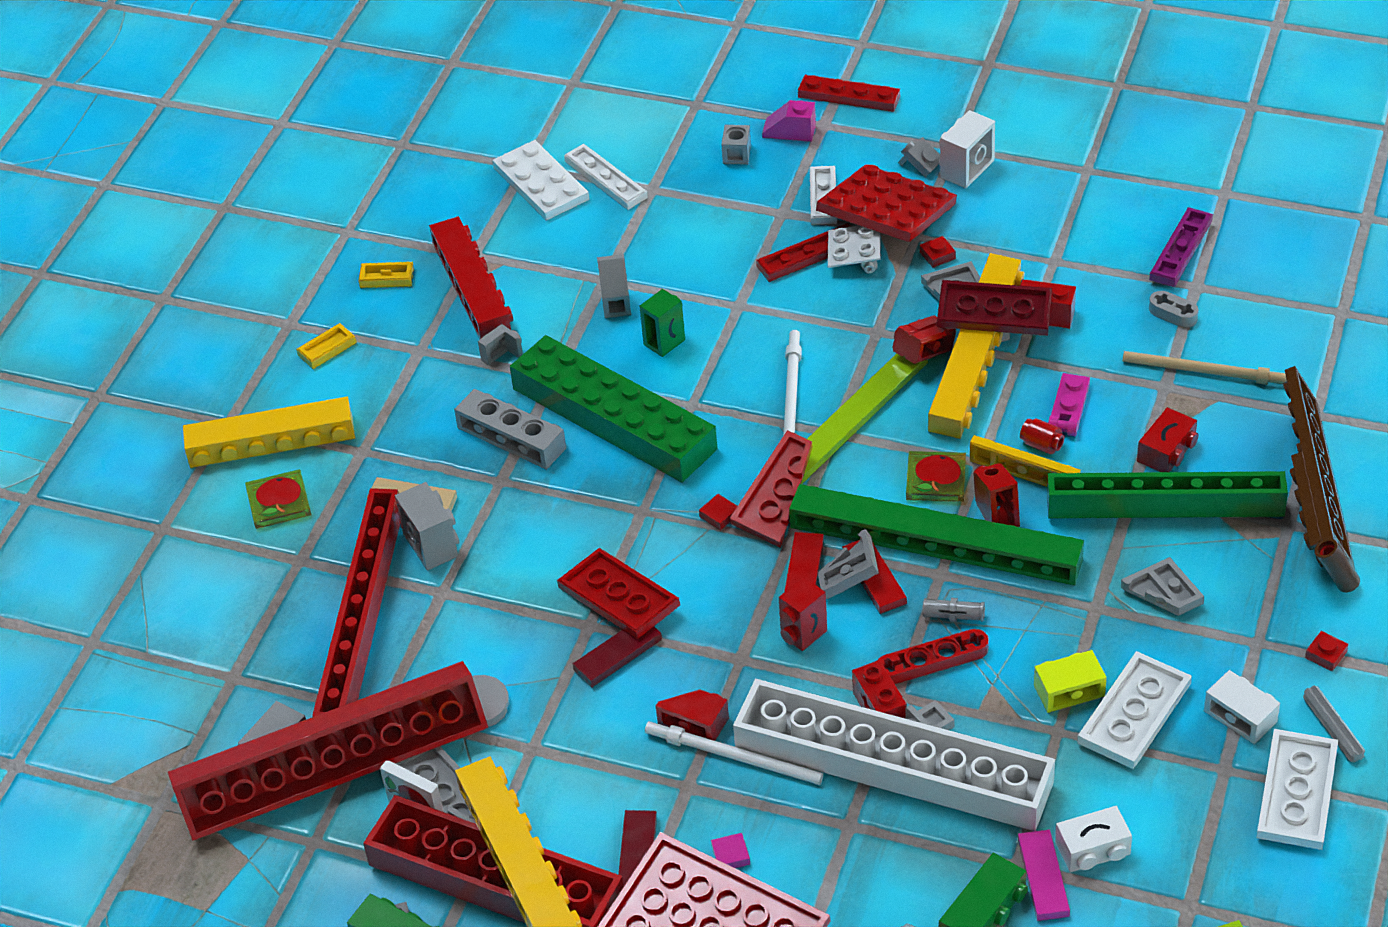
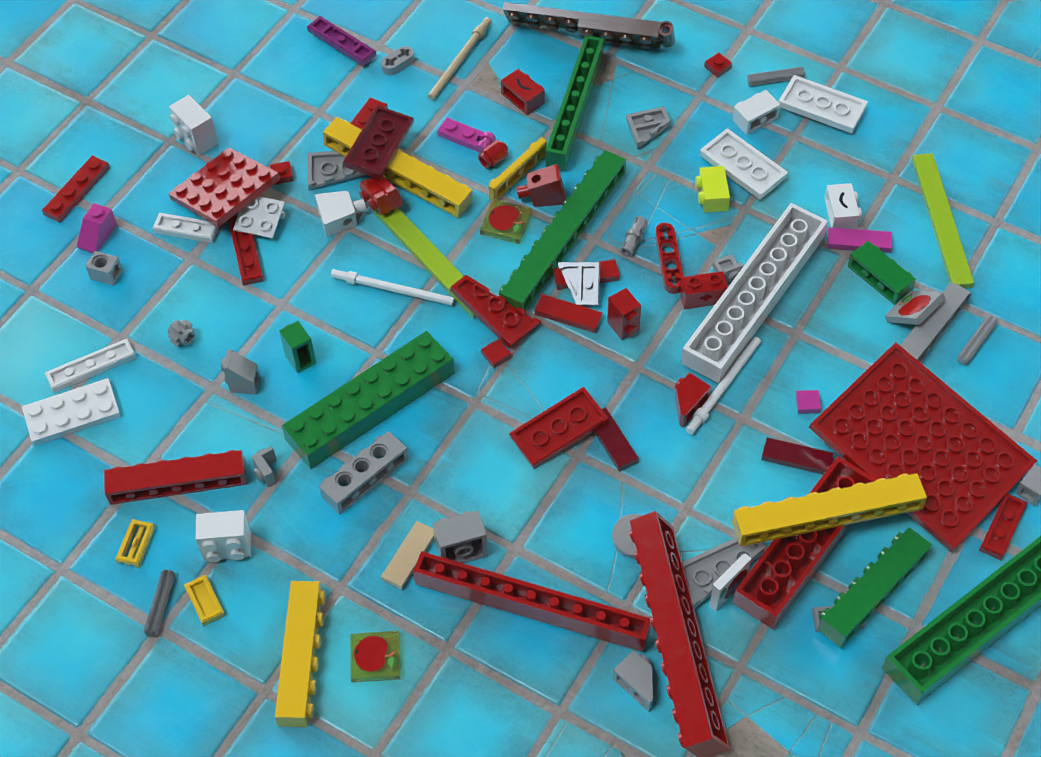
camera: 80 degrees left, 10 degrees up
(316, 311) = (159, 603): none -> dark grey axle
(393, 329) = (223, 535): none -> white brick
(662, 228) = (181, 332): none -> light grey gear
(885, 310) = (338, 211): none -> white torso
(921, 156) = (175, 158): light grey bracket -> none

